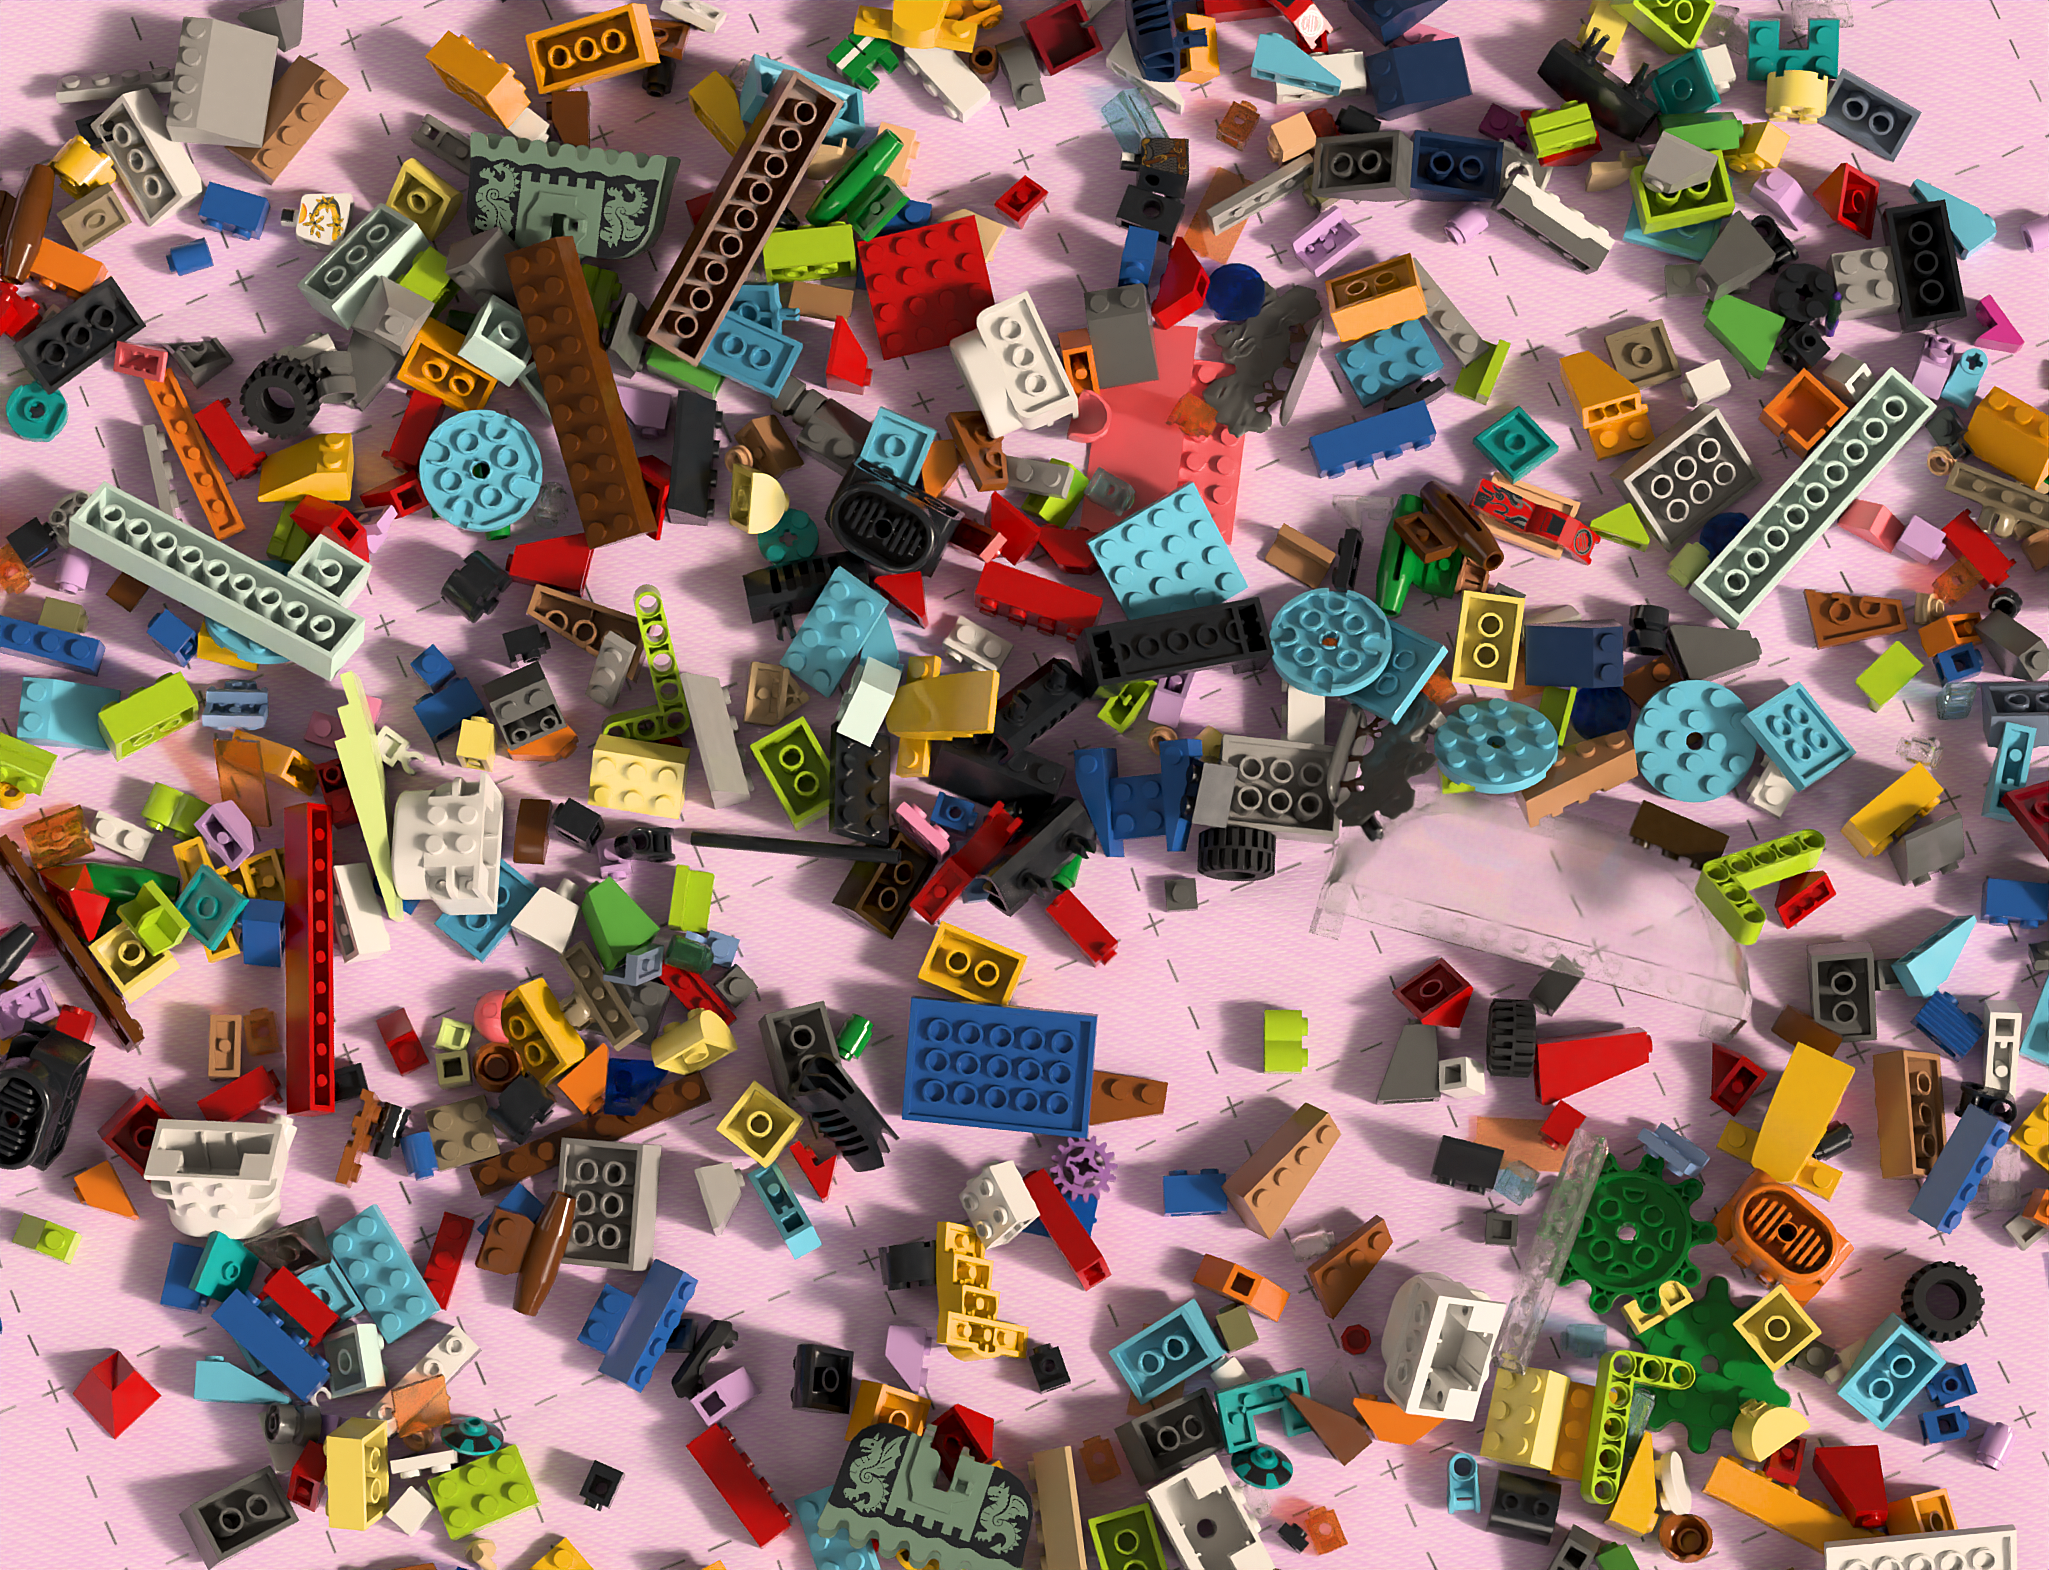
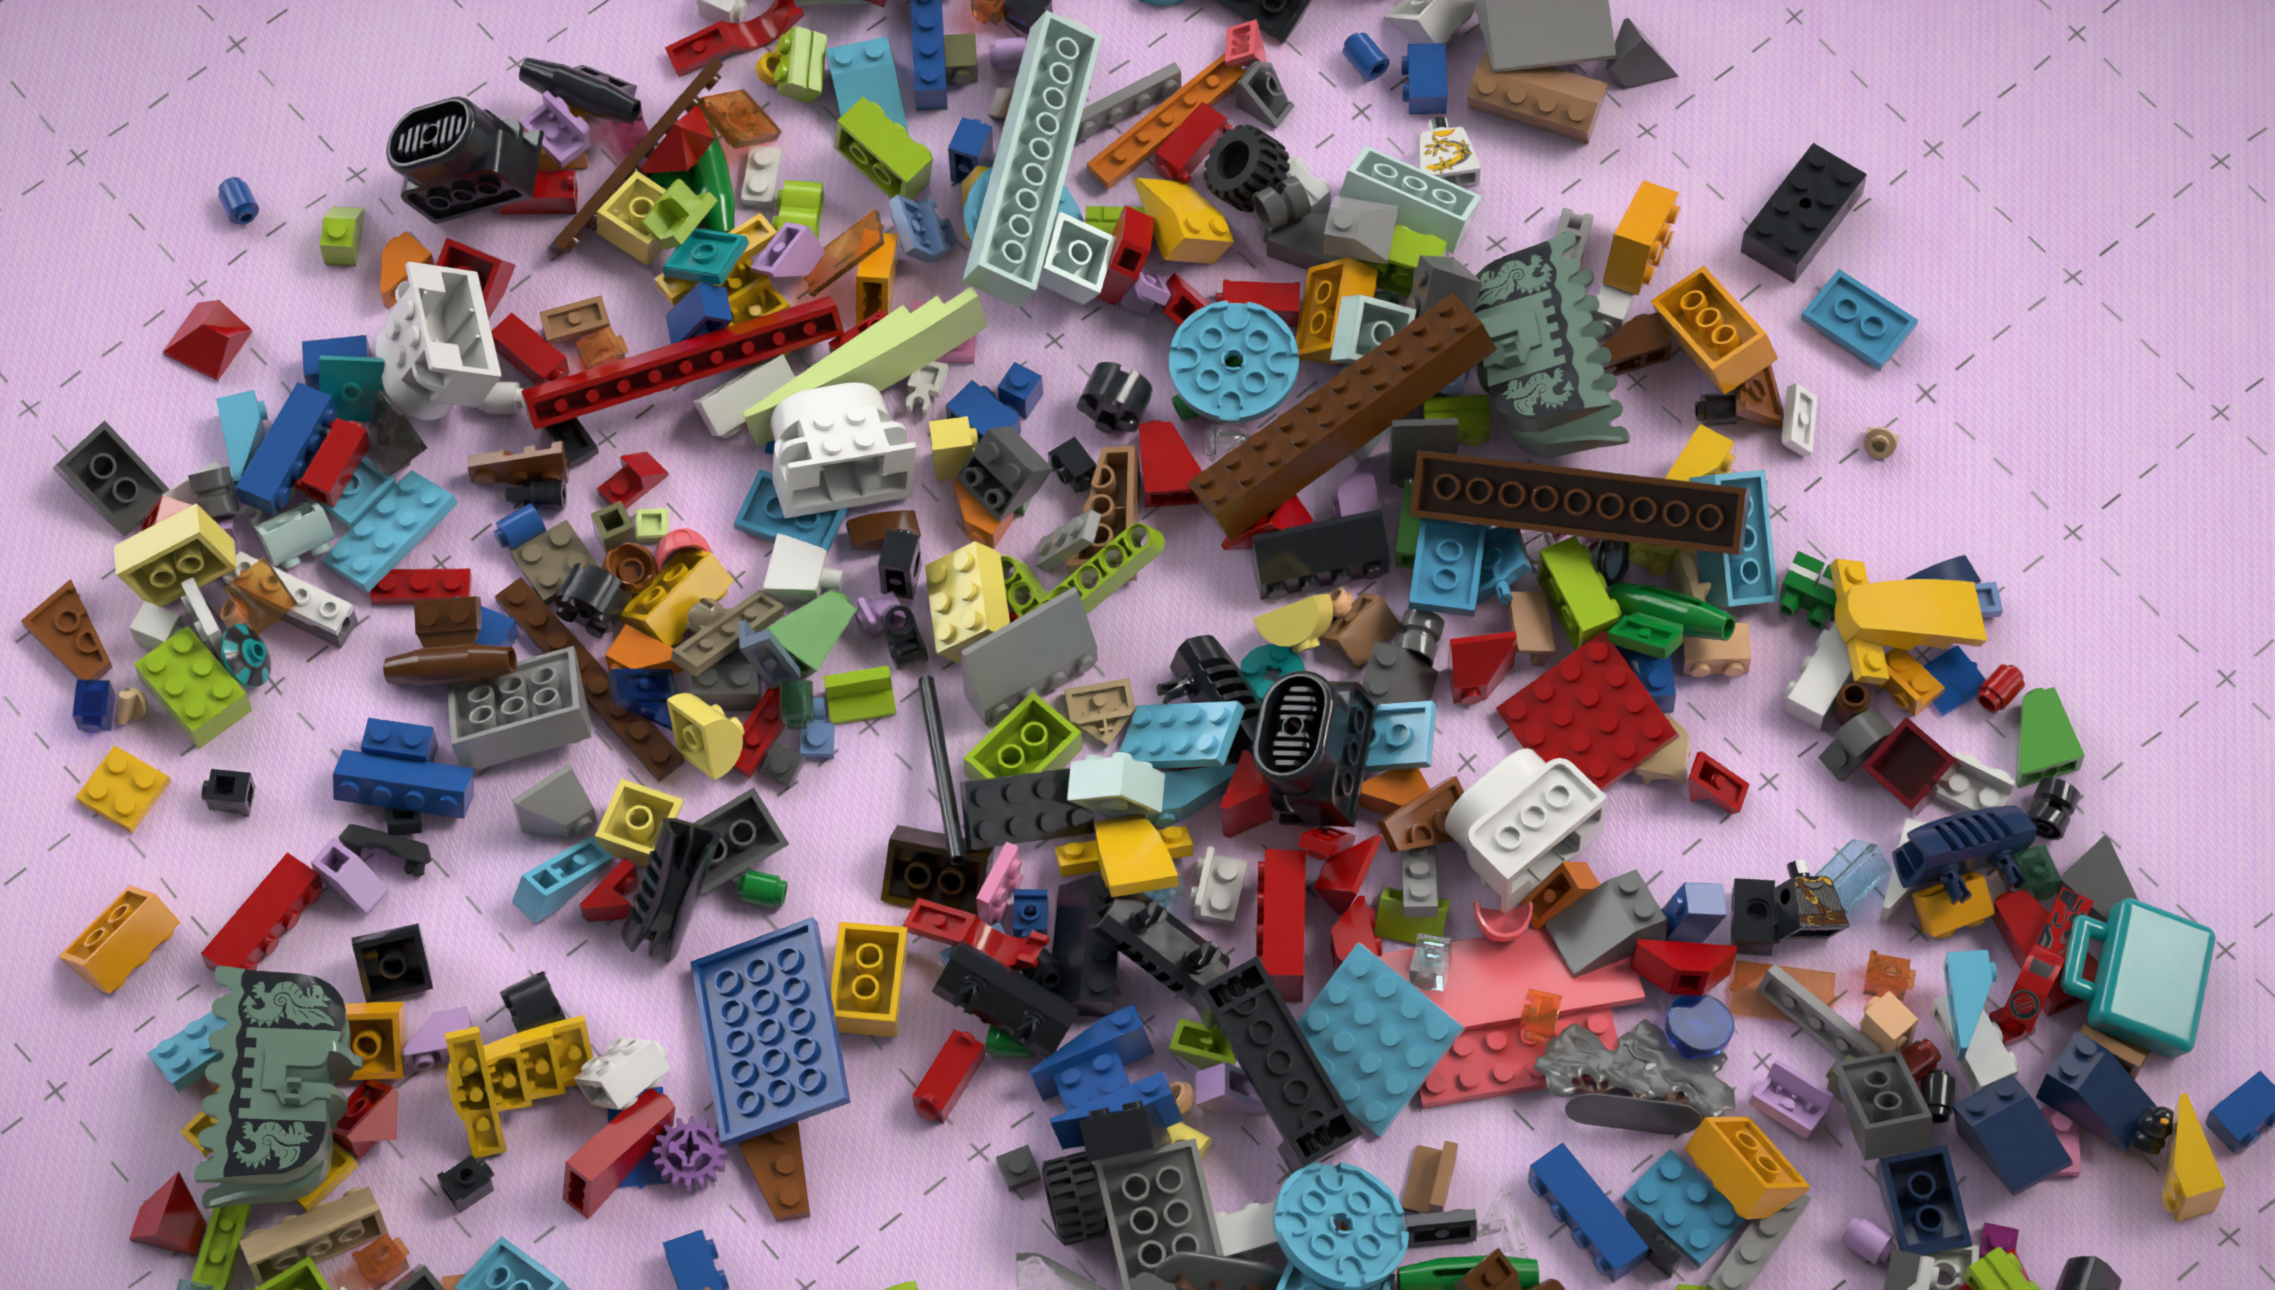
camera: 75 degrees right, 15 degrees down
(424, 198) = (1502, 231): light yellow brick -> none

